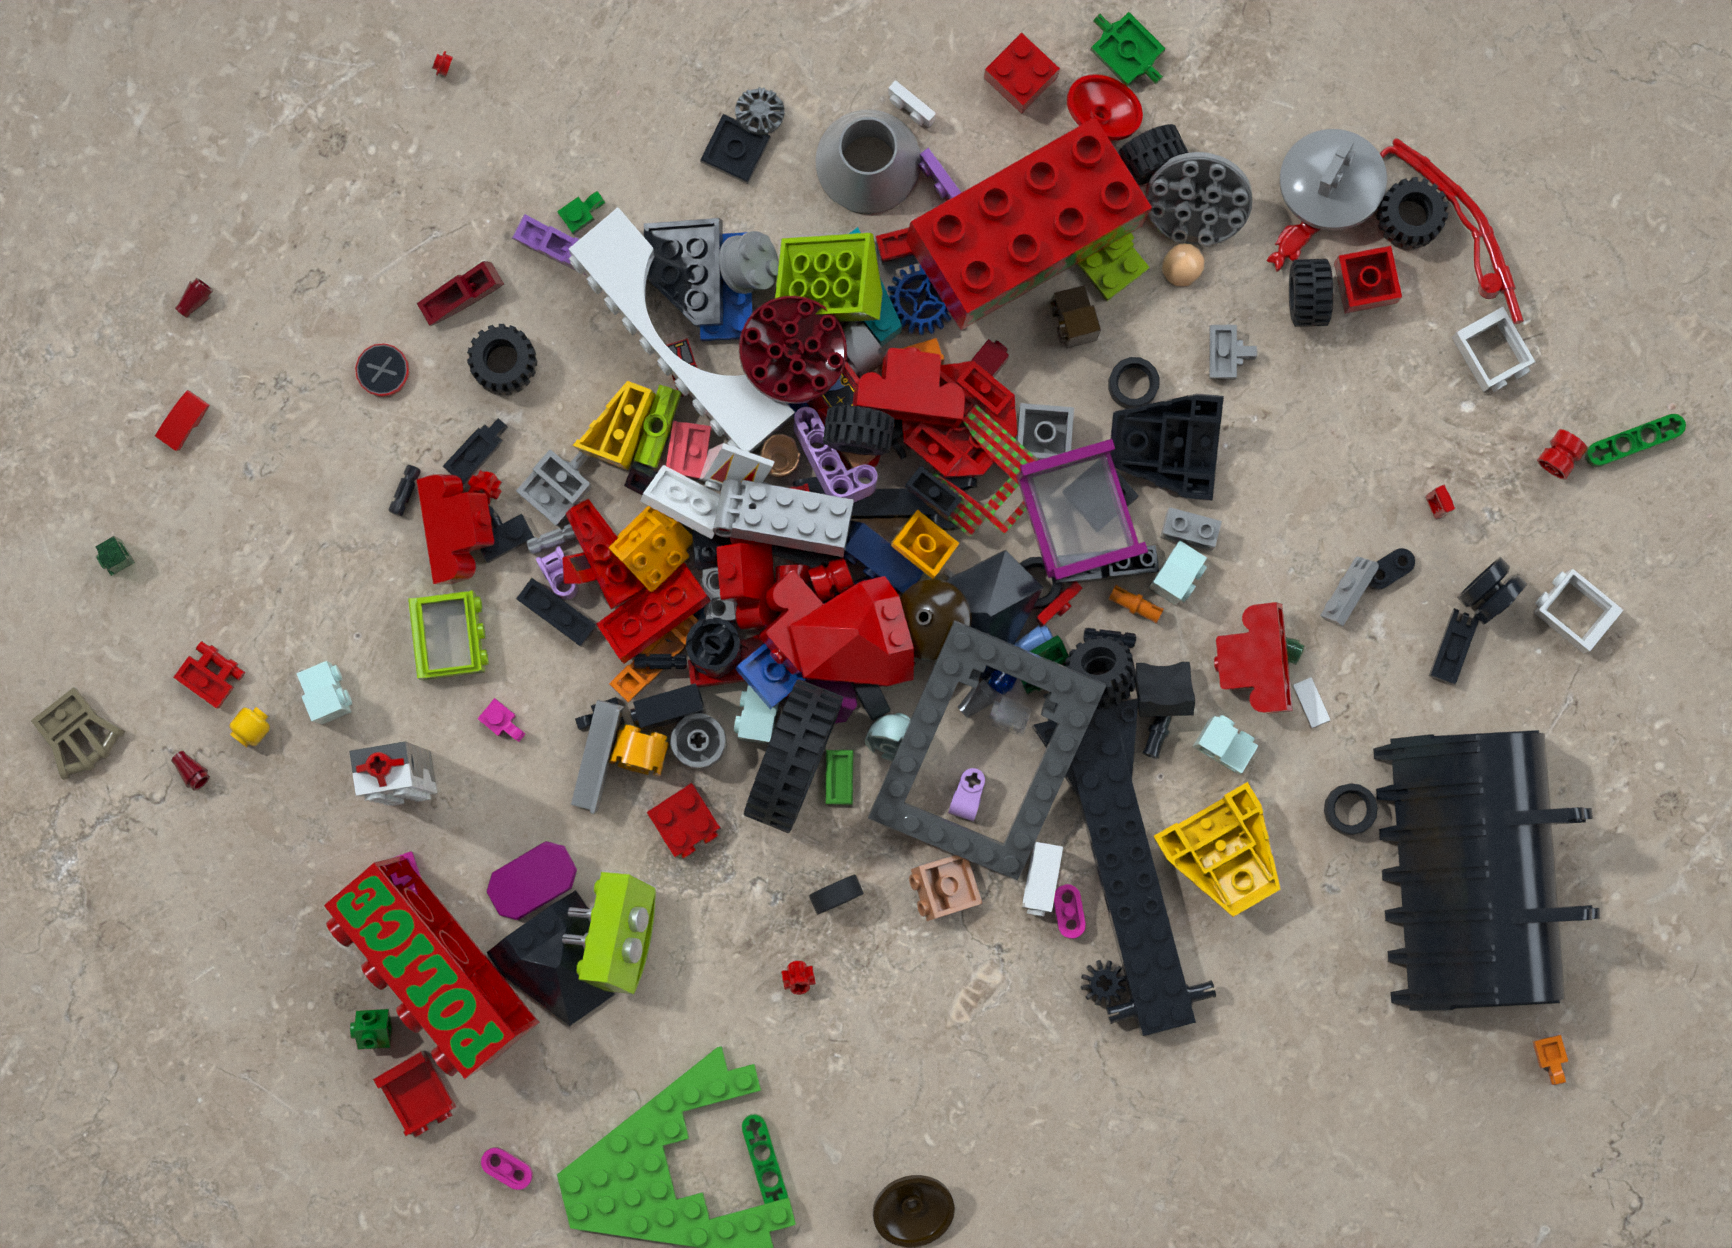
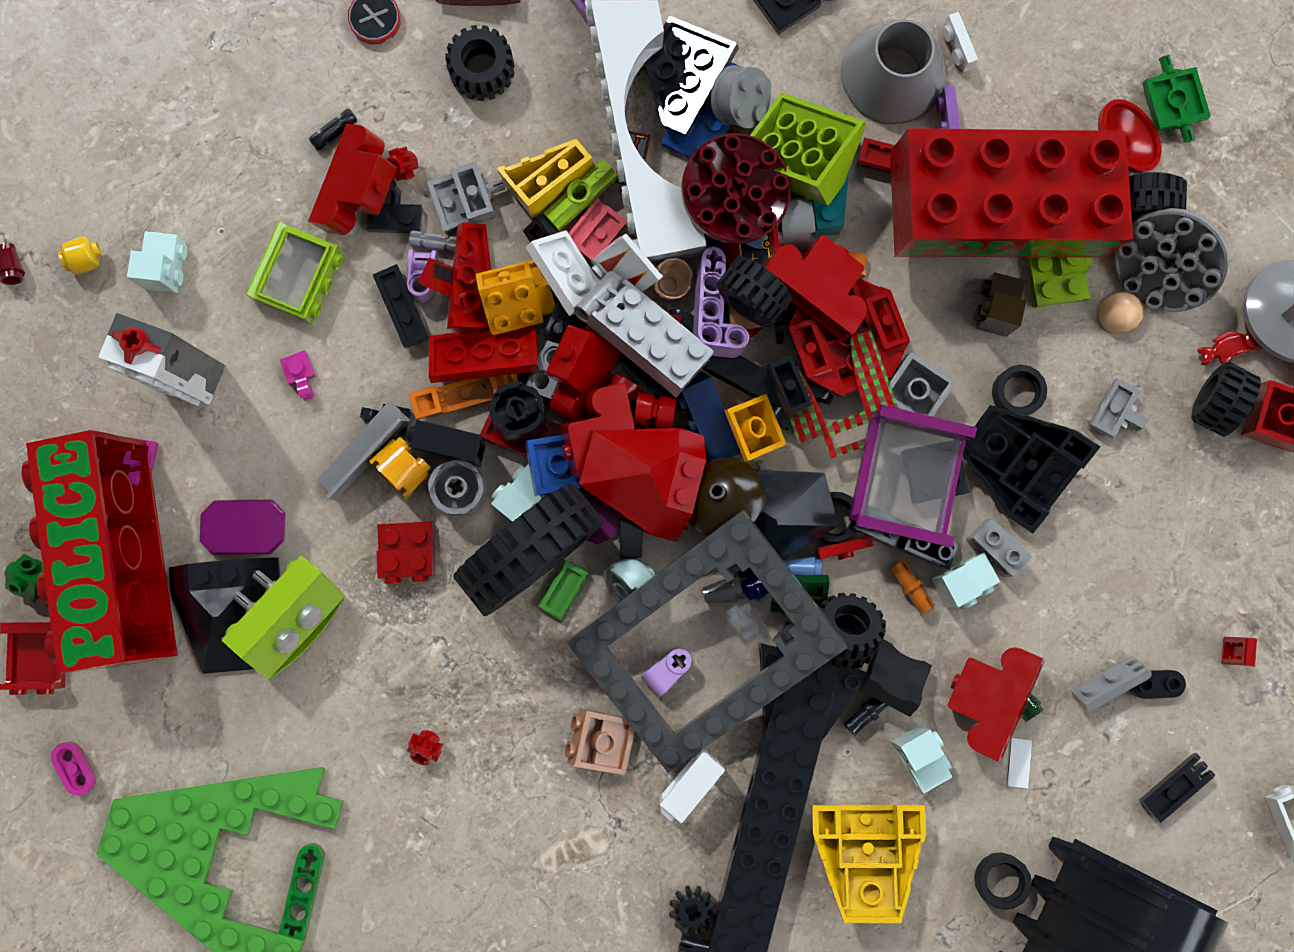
camera: 25 degrees right, 0 degrees up
(113, 555) = (48, 44): clear green brick -> none
(203, 681) = (66, 196): red plate -> none
(476, 451) = (413, 129): black hinge -> none
(660, 661) = (464, 399): black axle -> none
(836, 894) = (499, 693): black tyre -> none
(910, 296) = (867, 206): blue gear -> none
(992, 357) = (908, 297): dark red brick -> none
(1021, 73) = (1071, 67): red brick -> none
(1067, 911) = (698, 826): dark pink plate -> none
(1128, 638) = (888, 613): black axle -> none
(1494, 593) = (1243, 758): black wheel -> none

